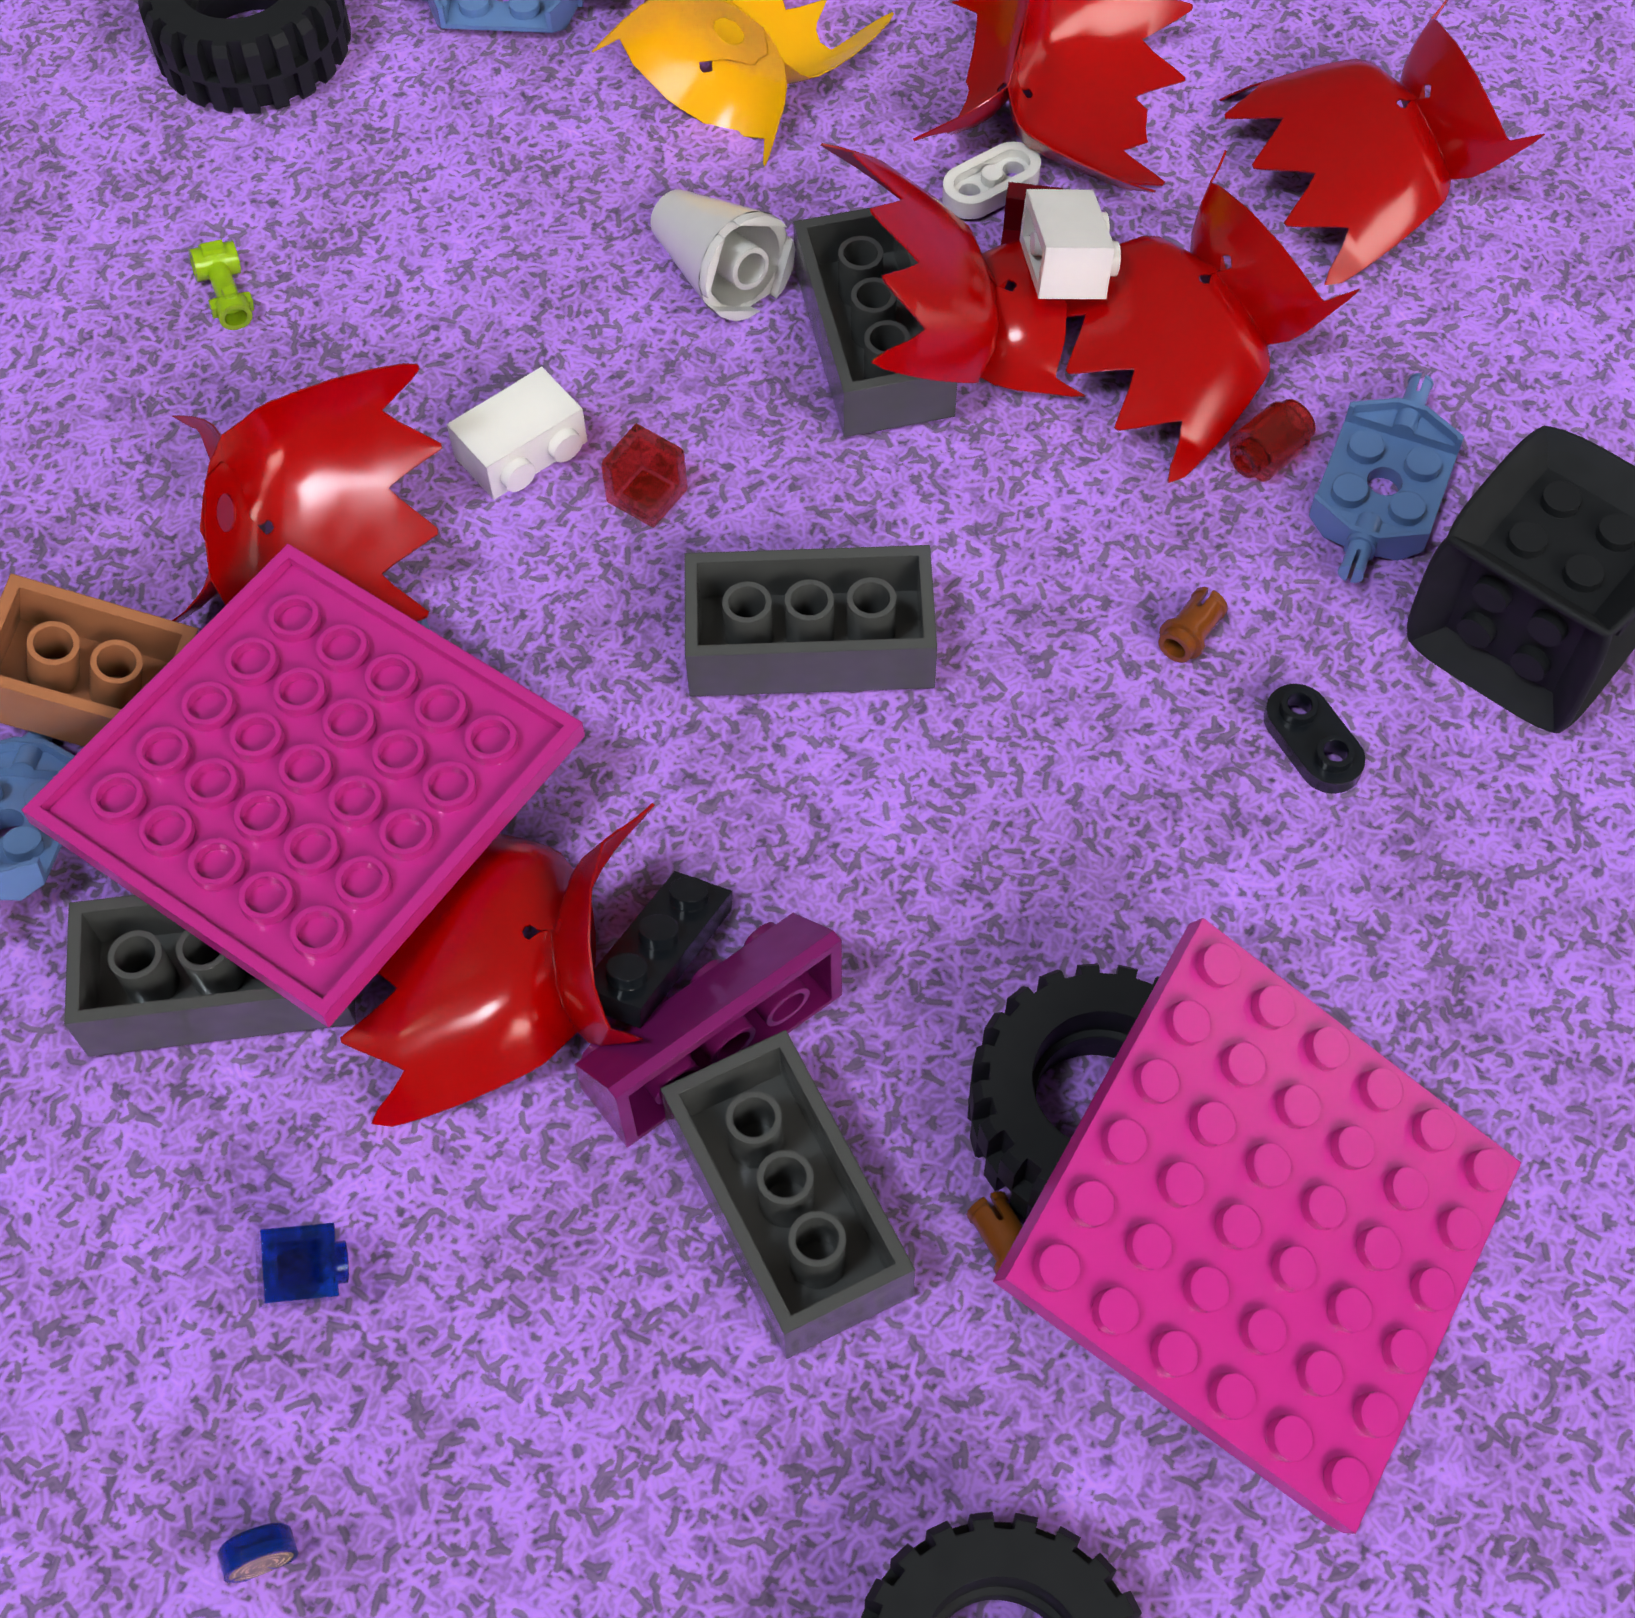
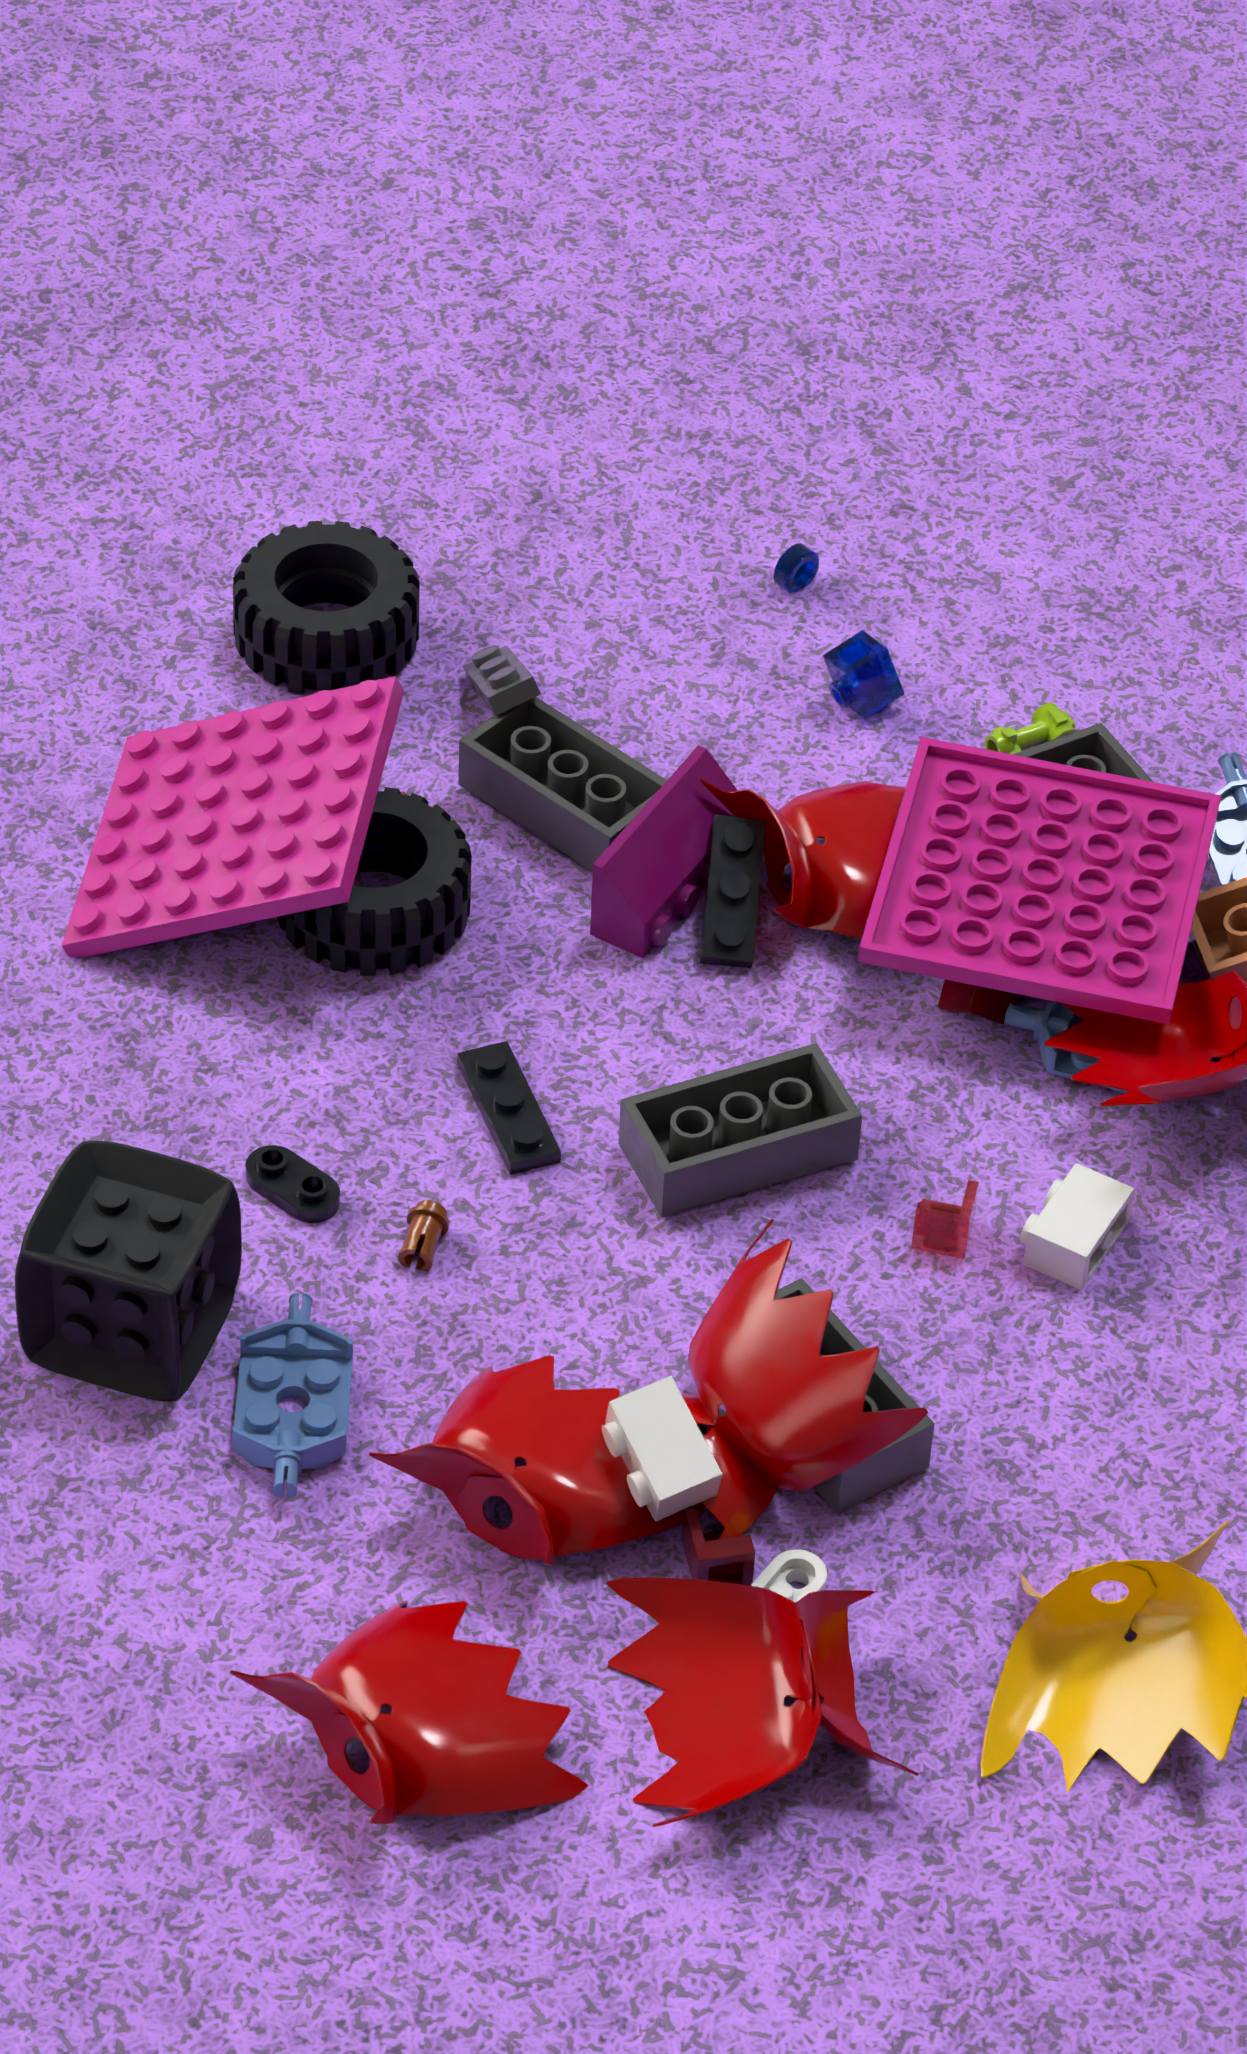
camera: 155 degrees right, 15 degrees down
(100, 1125) = (1047, 725): none -> lime bar
(724, 250) = (1008, 1427): white cone -> none
(801, 1405) = (500, 678): none -> dark grey plate
(1038, 768) = (508, 1108): none -> black plate
(1271, 439) = (407, 1402): clear red brick -> none

